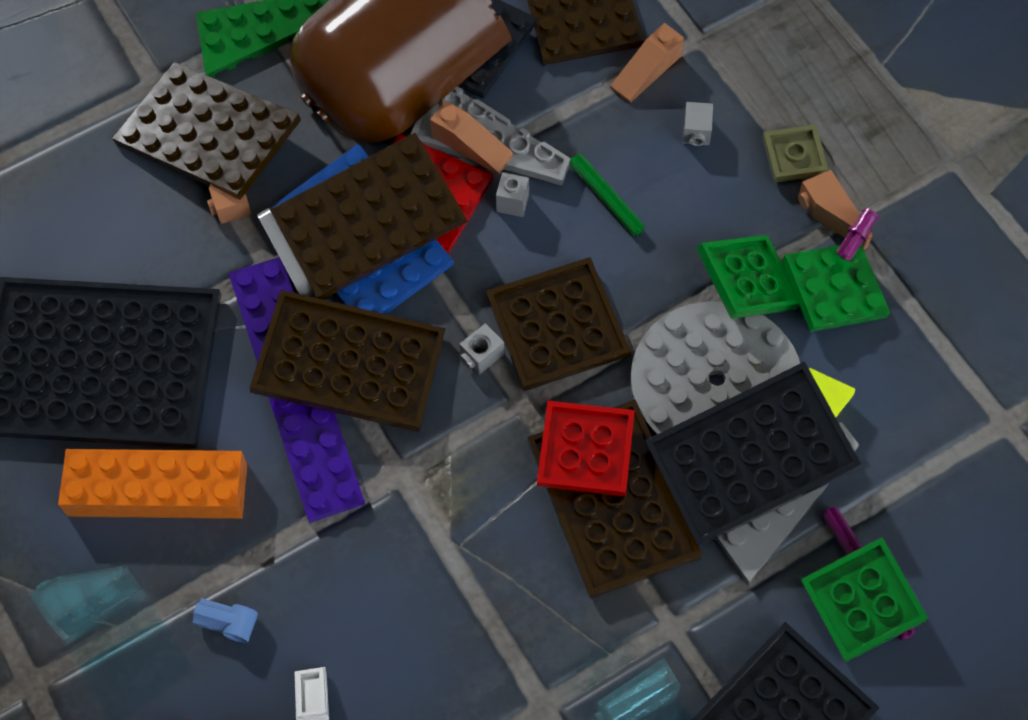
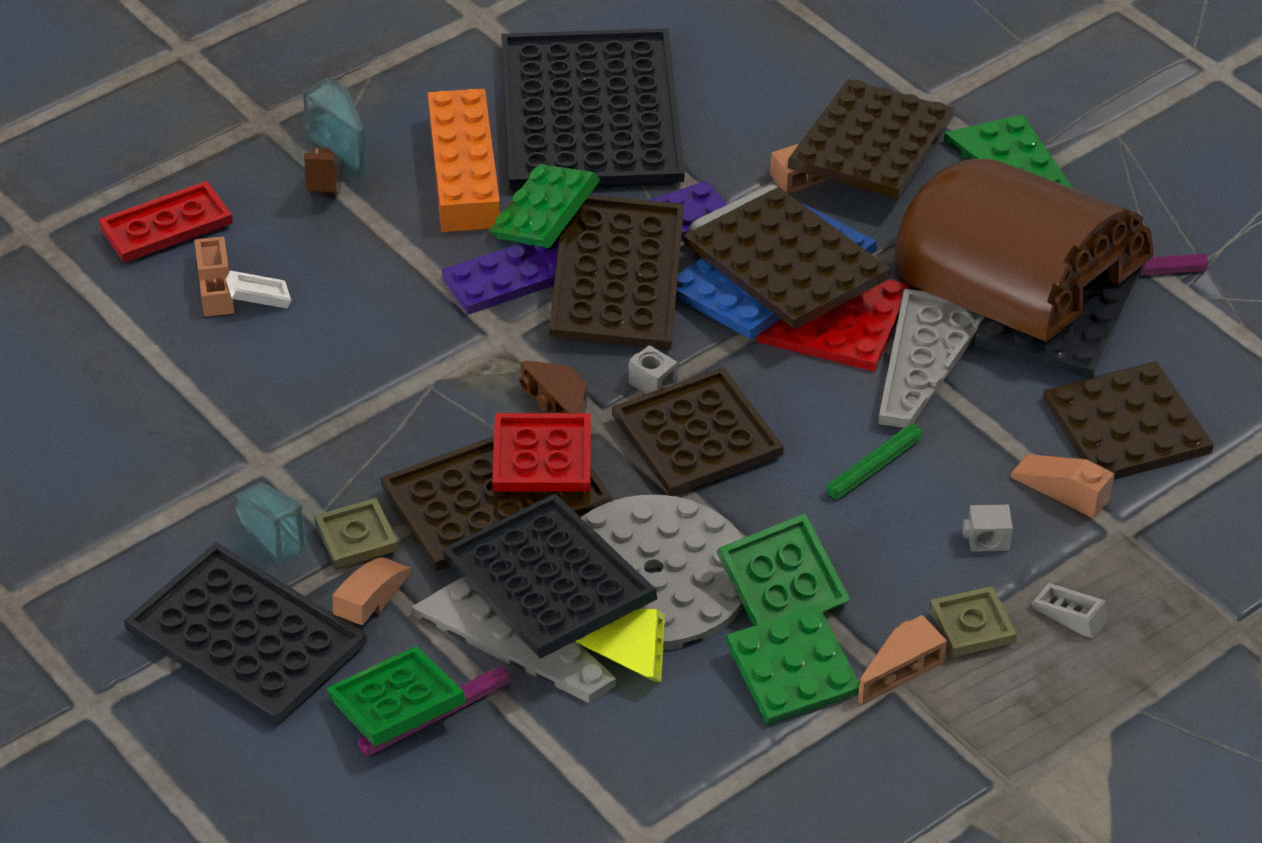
camera: 80 degrees right, 20 degrees down
(145, 618) = (323, 171): none -> reddish brown slope
(233, 622) = (331, 229): medium blue piece -> none
(260, 409) = (544, 205): none -> green plate
(467, 136) = (907, 325): nougat slope -> none
(500, 429) = (554, 387): none -> reddish brown slope
(512, 194) = (849, 376): light grey brick -> none
(654, 623) = (356, 533): none -> olive plate
(729, 613) = (369, 589): none -> nougat slope
(794, 70) = (1087, 622): none -> light grey slope
(857, 234) = (855, 662): magenta axle -> none

